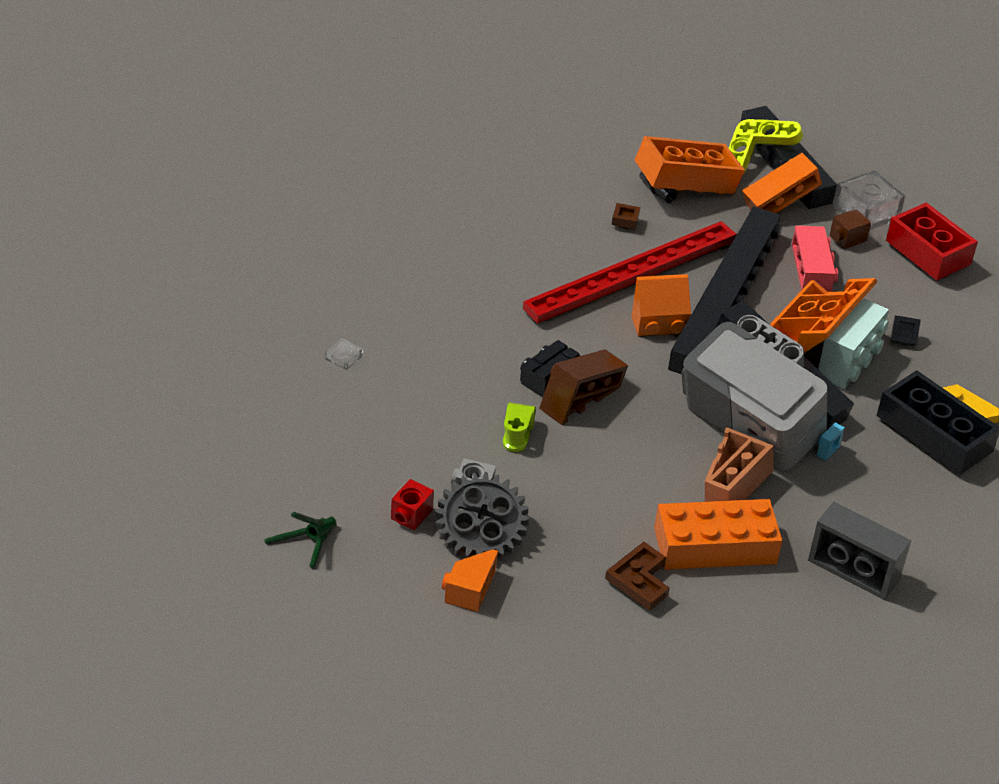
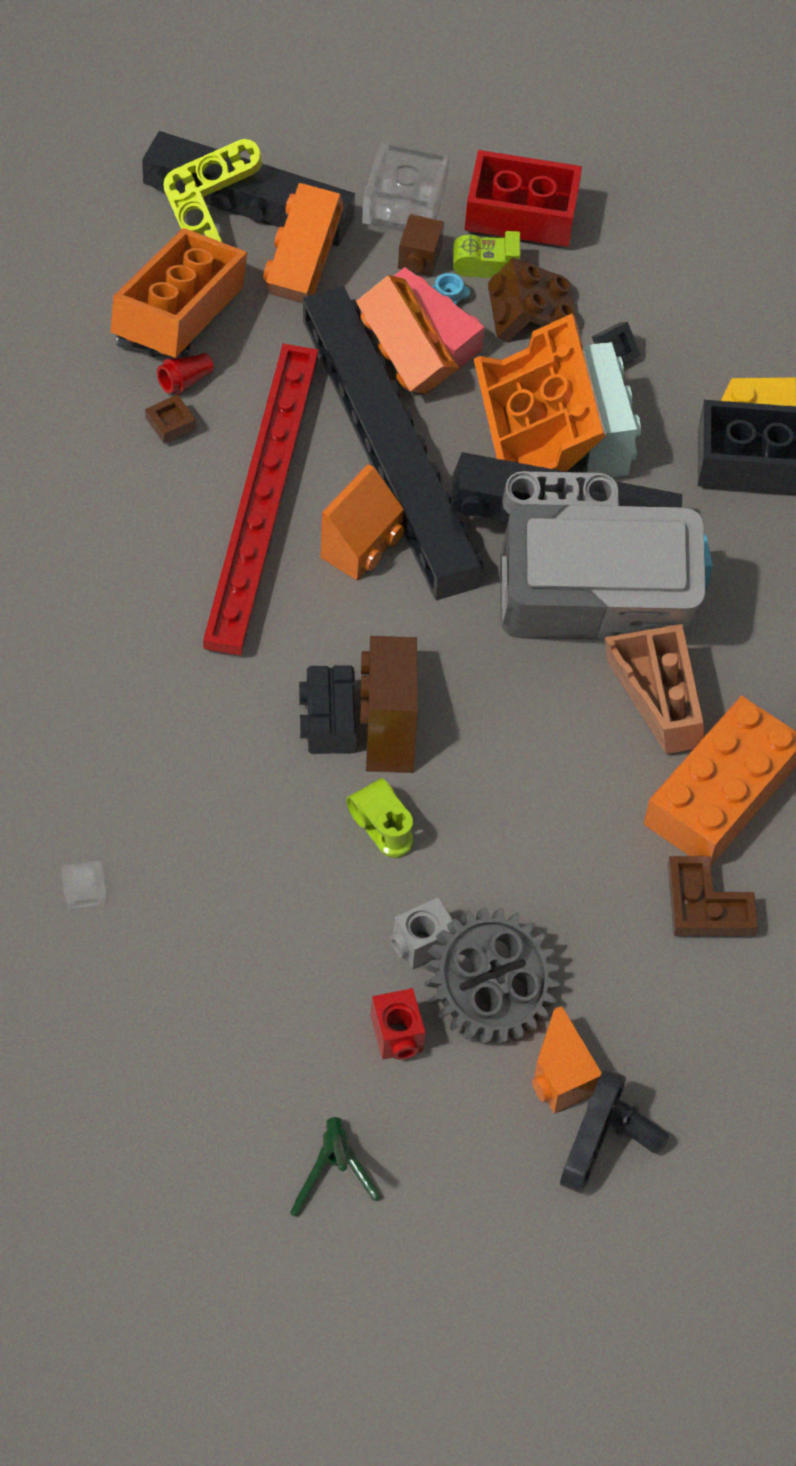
camera: 45 degrees left, 15 degrees up
(439, 623) = (593, 1130): none -> black beam
(474, 628) = (639, 1128): none -> black axle
(657, 203) = (182, 372): none -> red cone
(787, 250) = (406, 335): none -> orange brick
(843, 256) = (452, 287): none -> medium azure plate
(883, 256) = (484, 255): none -> lime leg
(892, 286) = (527, 294): none -> reddish brown bracket

